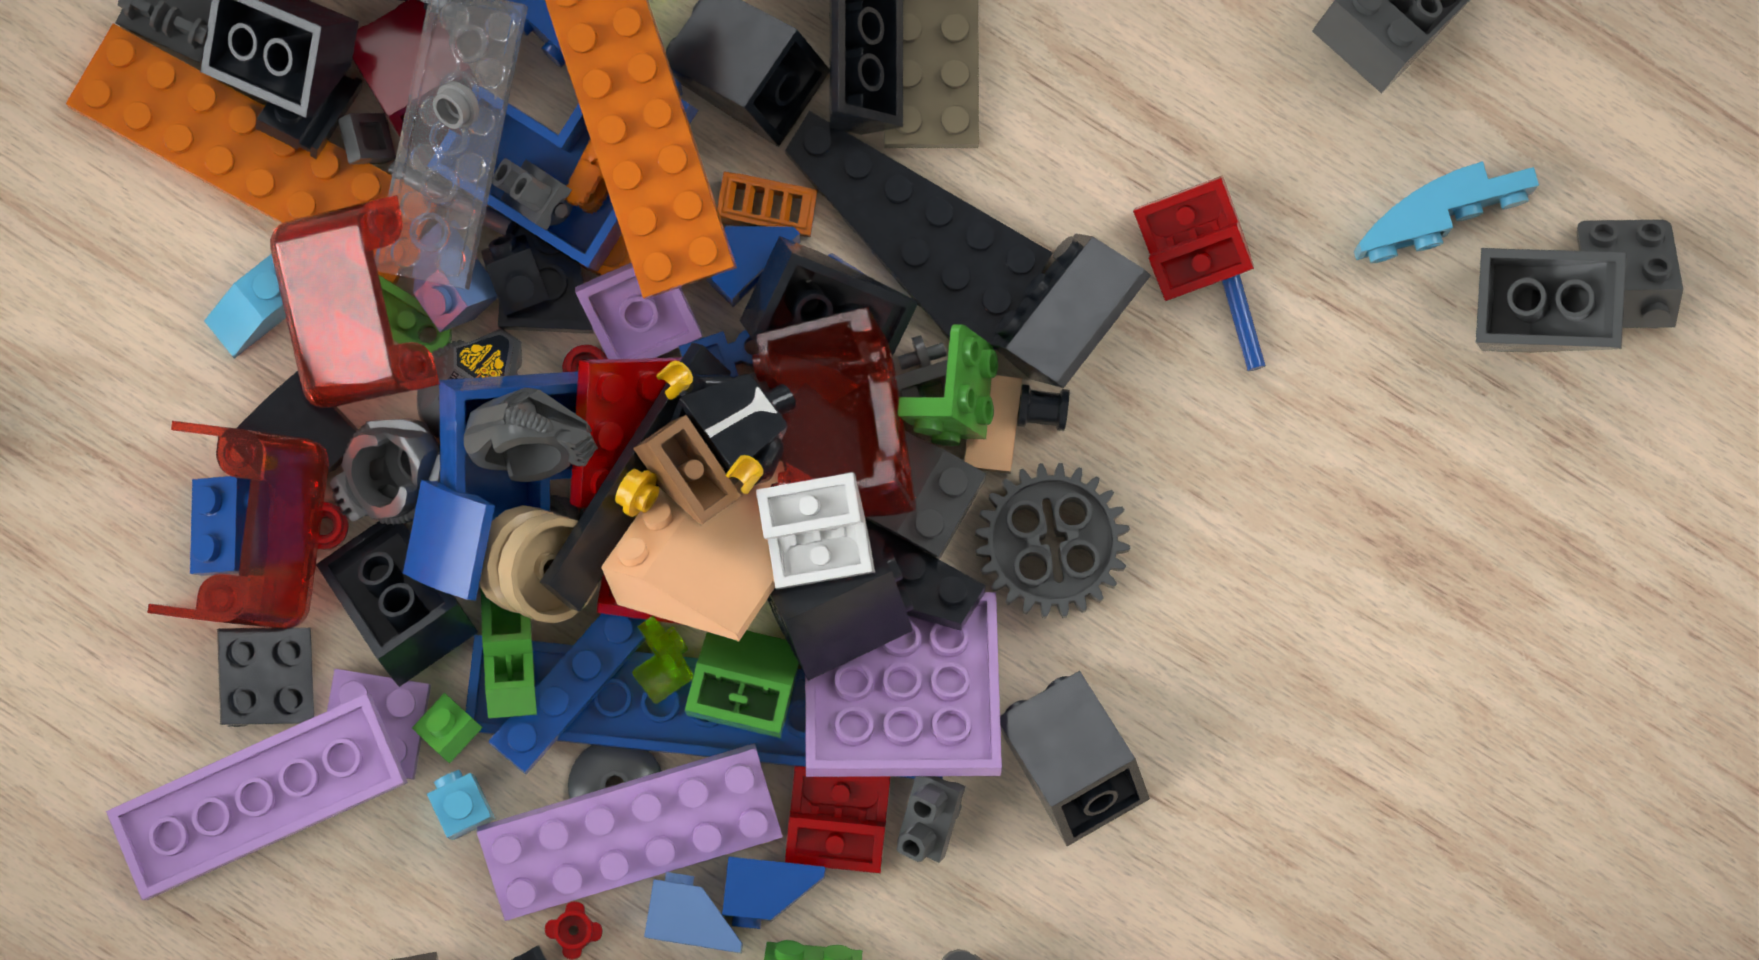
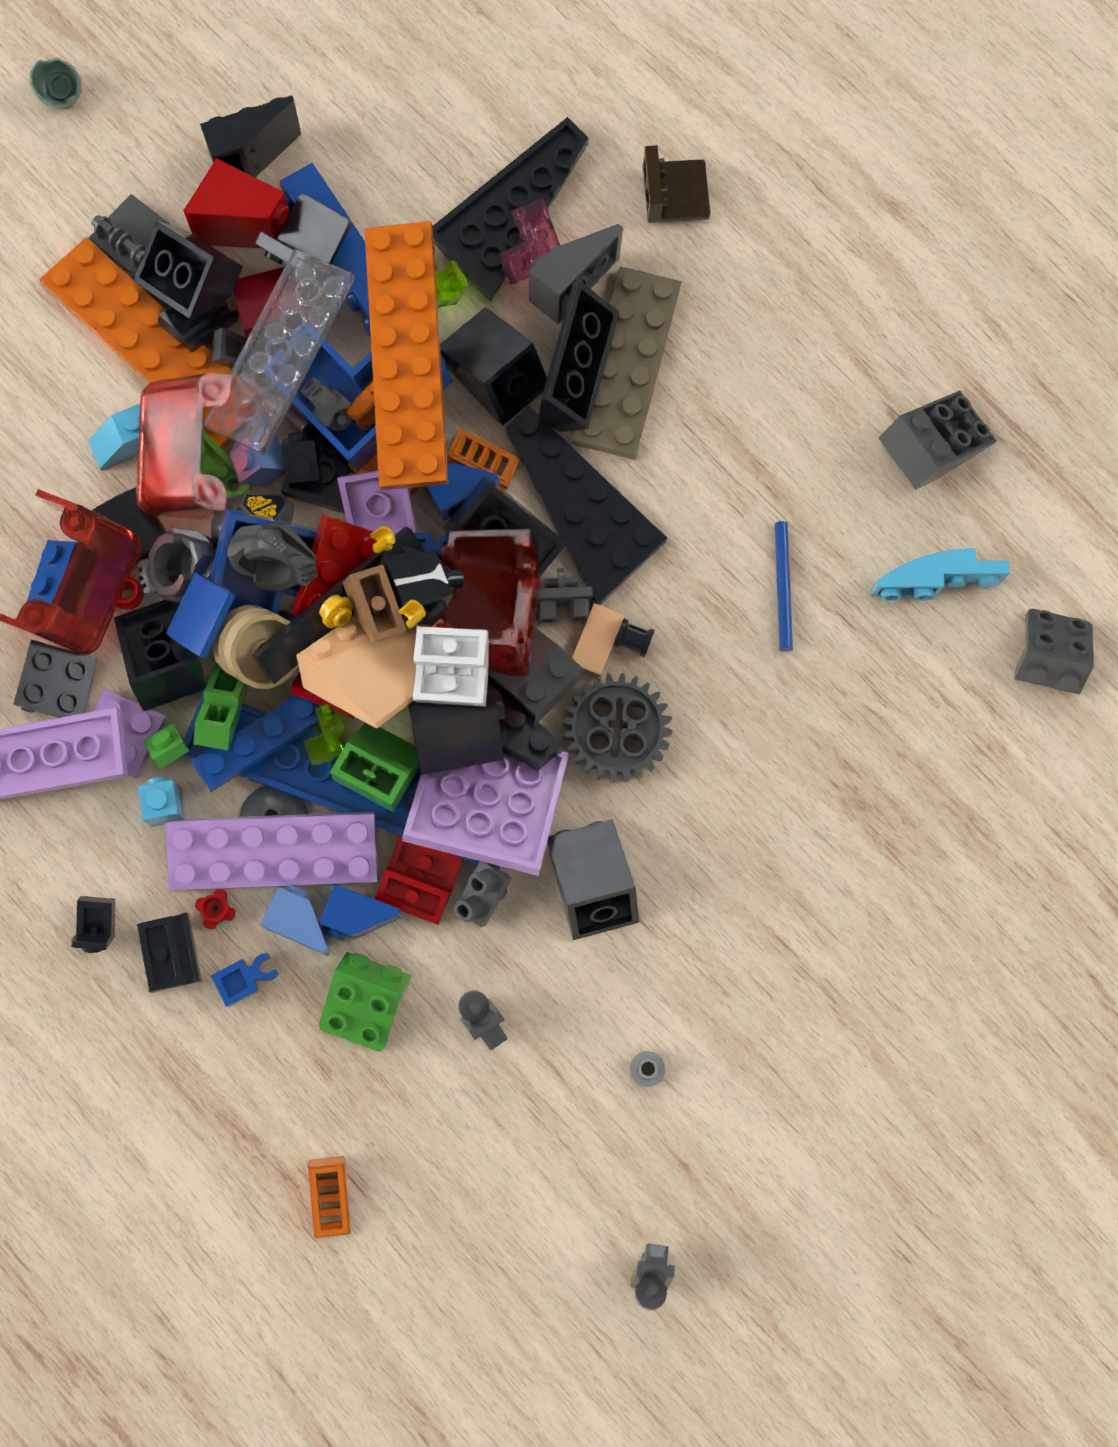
camera: 10 degrees right, 5 degrees down
(456, 105) = (287, 326): light grey plate -> none
(967, 399) = (580, 618): bright green bracket -> none
(1068, 310) = (667, 574): slope -> none
(1194, 238) = (765, 551): red slope -> none
(1550, 300) = (1000, 650): dark grey slope -> none

